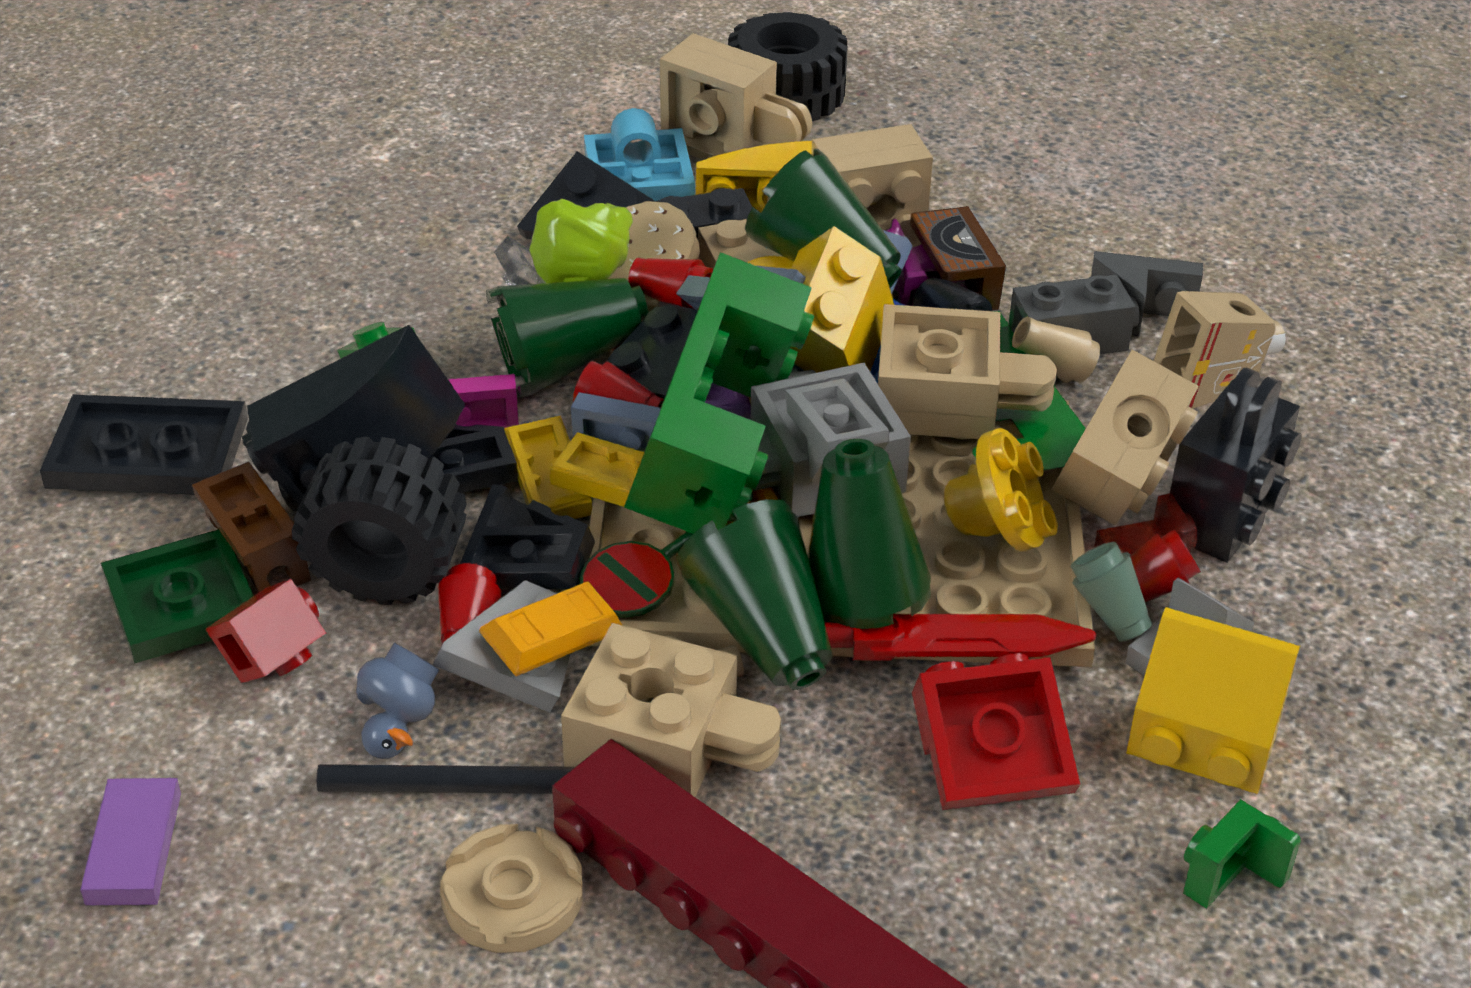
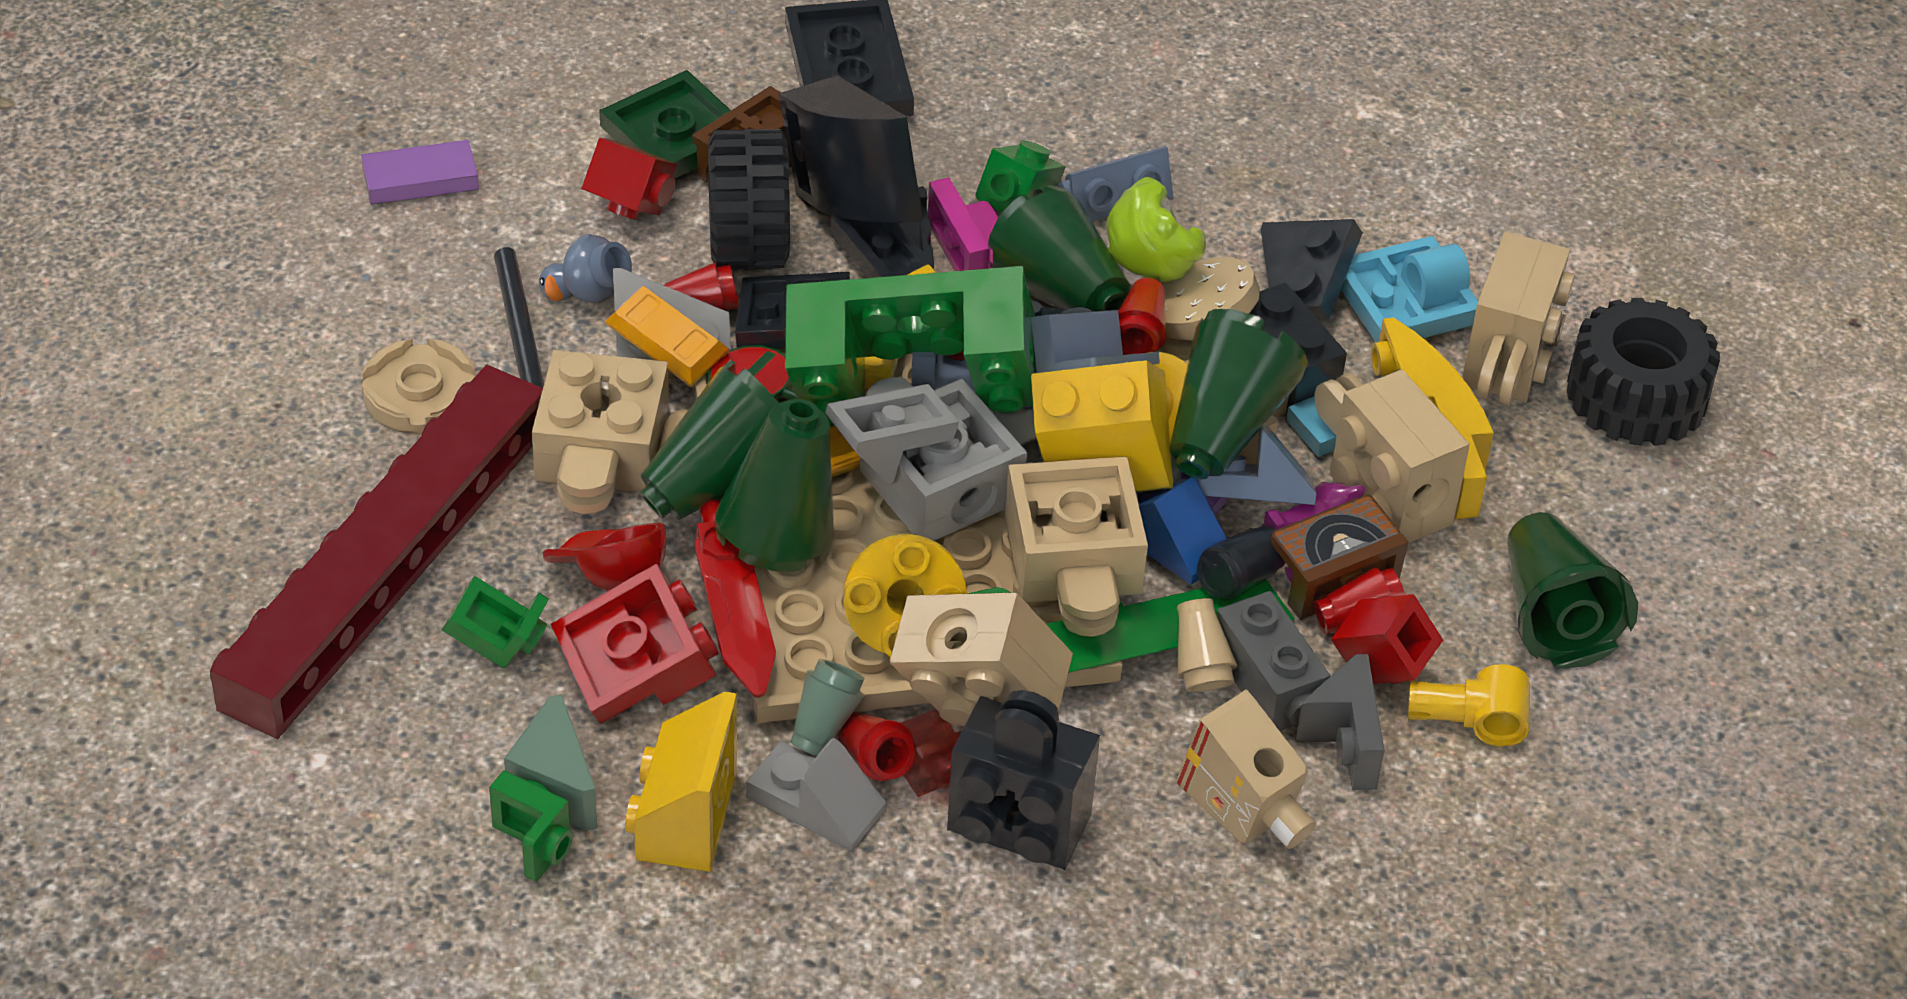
camera: 75 degrees right, 5 degrees up
(423, 299) = (1104, 184): none -> sand blue hinge
(850, 730) = (613, 555): none -> red cap
(942, 842) = (495, 623): none -> green bracket
(1013, 249) = (1337, 605): none -> red cone
(1014, 149) = (1566, 593): none -> dark green cone
(1066, 243) = (1393, 635): none -> red brick
(1128, 219) = (1491, 704): none -> yellow pin
(1150, 821) = (552, 756): none -> sand green slope

